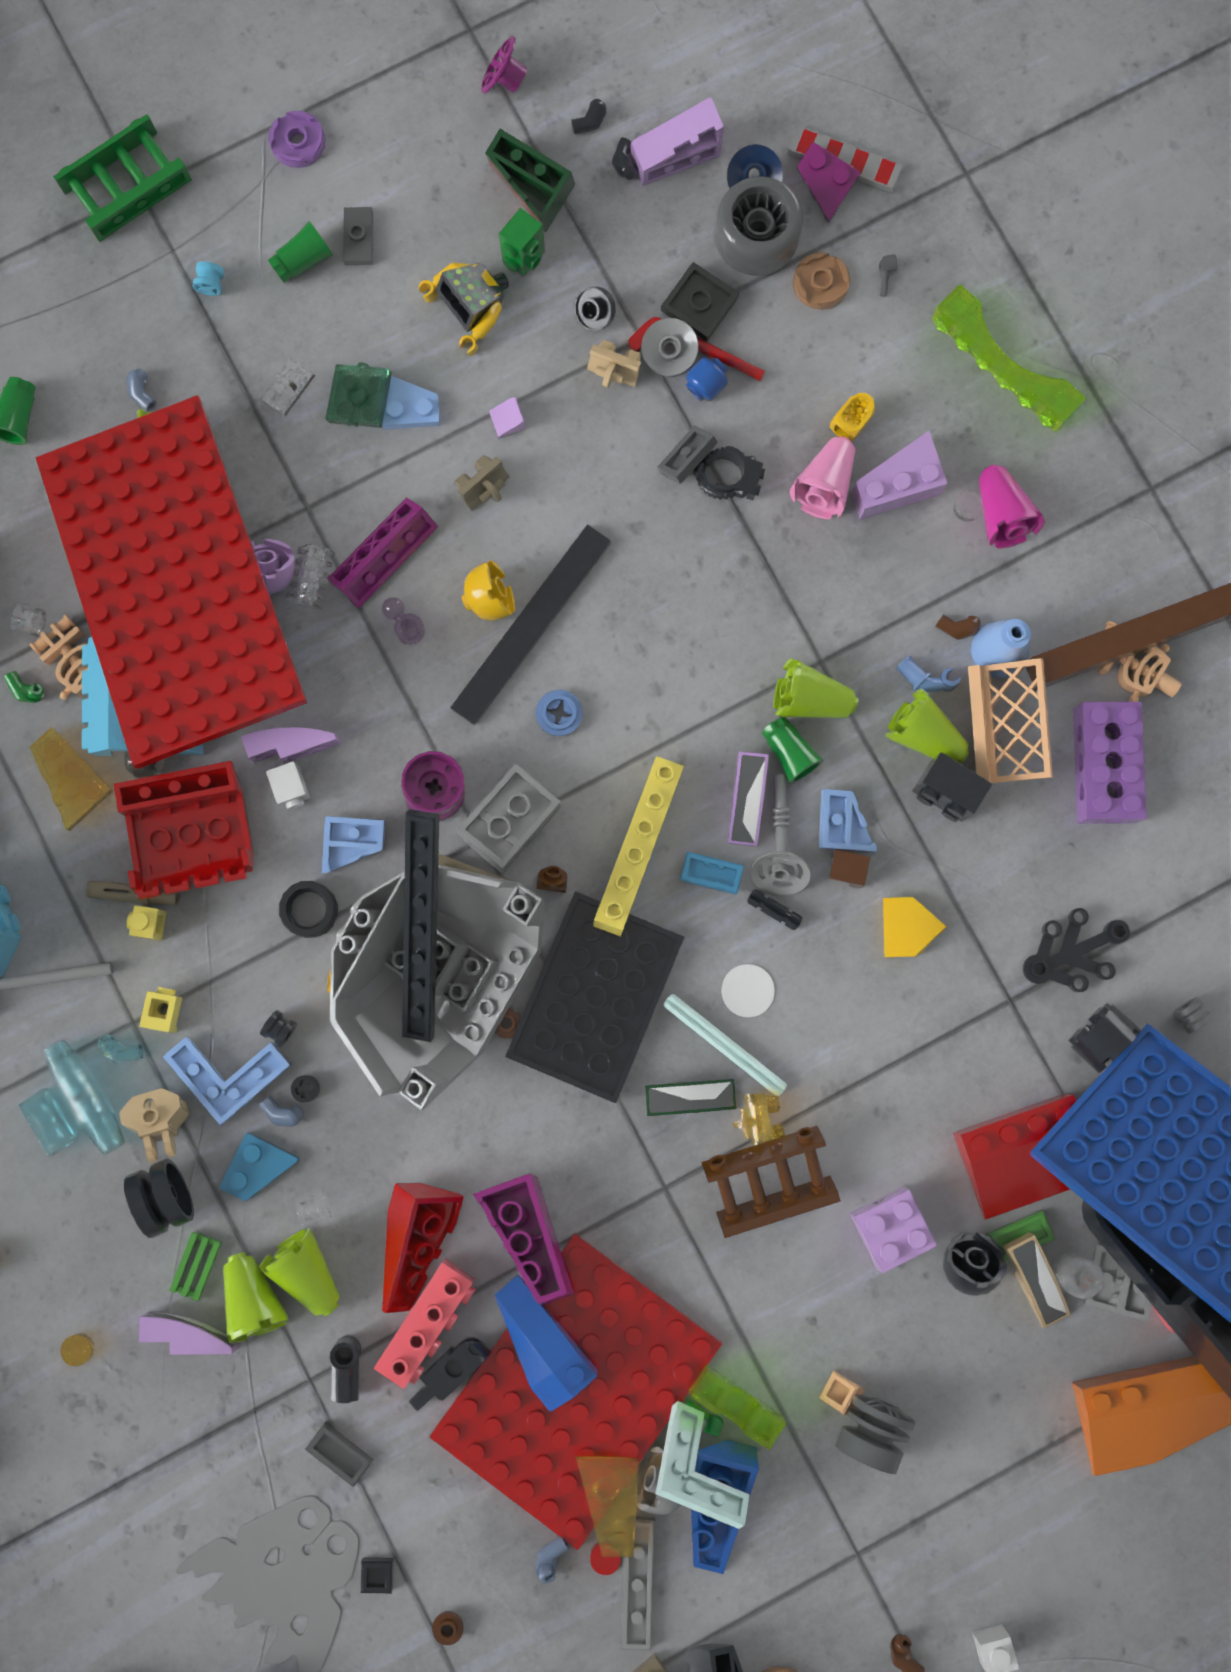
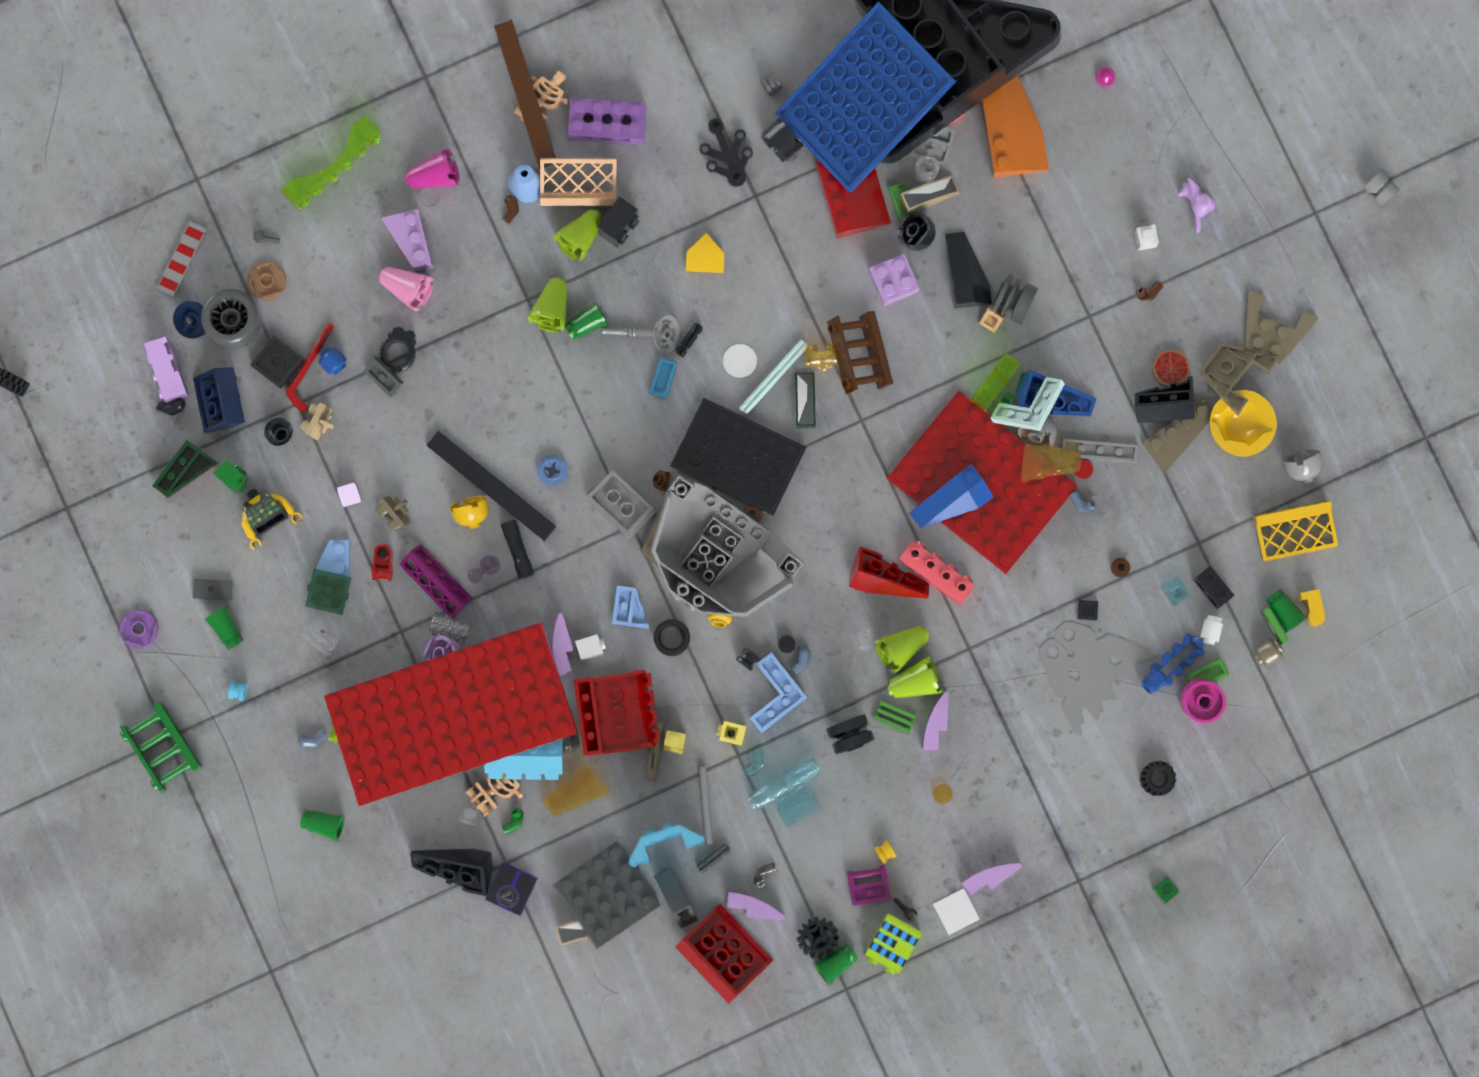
camera: 85 degrees left, 0 degrees up
(155, 1120) = (803, 737): tan hinge -> none
(255, 1166) = (834, 677): dark azure wing -> none
(339, 1454) = (1014, 631): dark grey tile -> none
(345, 1371) = (965, 624): black piece -> none
(400, 469) = (382, 564): none -> red piece
(417, 675) = (517, 549): none -> black axle
(420, 924) = (690, 553): black tile -> none
(432, 769) = (591, 542): magenta wheel -> none
(450, 1371) = (966, 558): black piece -> none
(507, 71) = (104, 482): magenta wheel -> none
(525, 1228) = (880, 506): magenta wedge -> none
(592, 118) = (140, 426): black arm -> none
(638, 846) = (644, 422): light yellow brick -> none
(639, 224) = (218, 399): none -> dark blue slope
(669, 332) = (315, 376): light grey dish -> none
(747, 798) = (616, 352): slope -> none
(827, 178) = (197, 272): magenta wing -> none
(842, 823) = (636, 293): light blue wing -> none
(849, 868) = (665, 290): reddish brown panel -> none
(853, 416) = (365, 266): yellow rock -> none
(908, 1347) = (967, 278): none -> black wedge
(924, 681) = (545, 235): medium blue piece -> none

